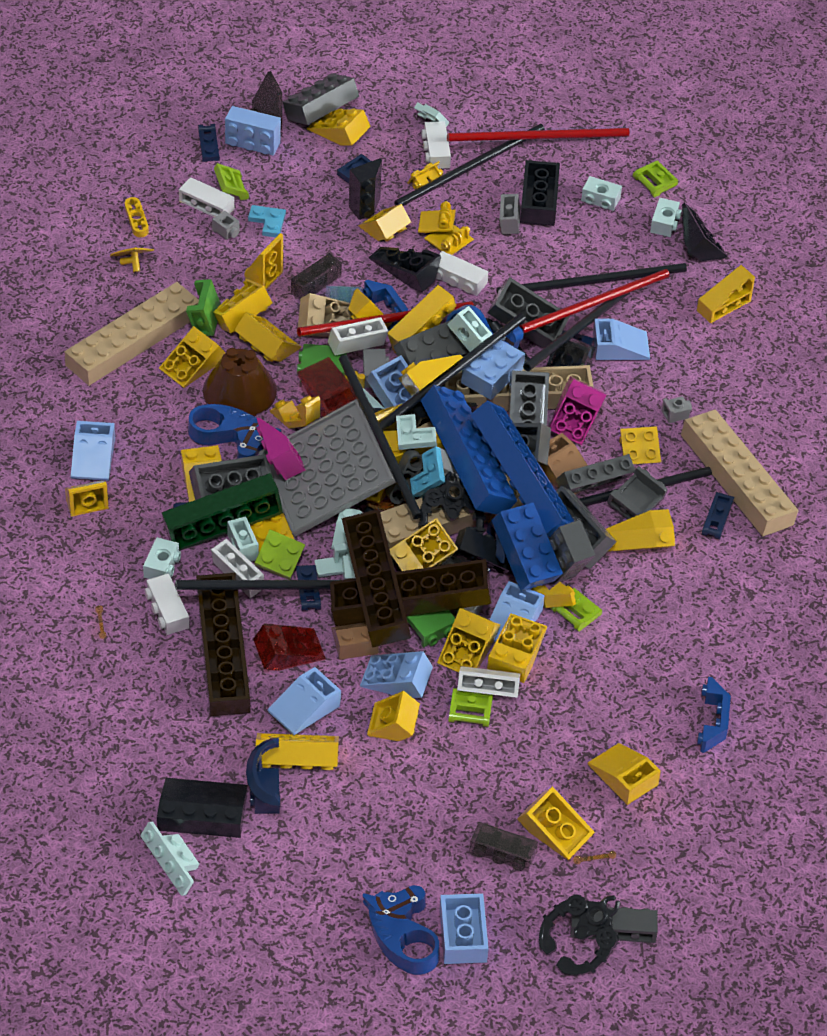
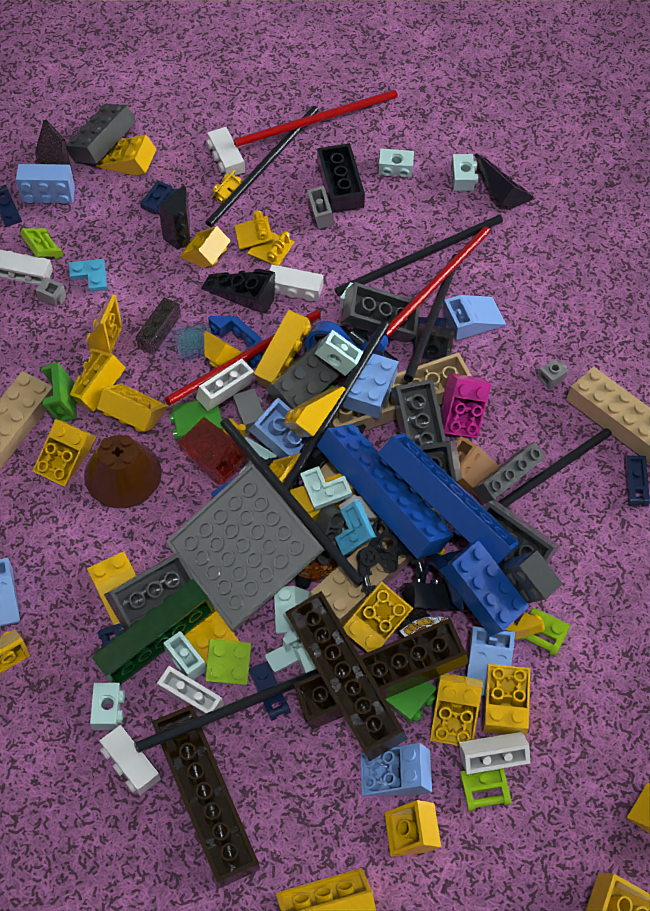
camera: 15 degrees left, 10 degrees up
(99, 609) = (58, 788): clear yellow hinge -> none
(233, 427) = (133, 518): blue animal -> none
(280, 451) = (194, 546): dark pink slope -> none
(287, 646) = (273, 773): clear red slope -> none
(306, 701) = (315, 842): light blue slope -> none
(307, 412) = (182, 489): yellow slope -> none
(320, 310) = (180, 367): tan slope -> none
(353, 641) = (335, 742): medium nougat slope -> none
(432, 114) = (207, 121): light aqua plate -> none
(637, 494) = (555, 483): dark grey panel -> none
(641, 444) = (534, 423): yellow hinge -> none
(644, 531) = (580, 522): yellow wedge -> none
(659, 175) = (440, 130): lime plate -> none
(727, 295) = (552, 239): yellow wedge -> none

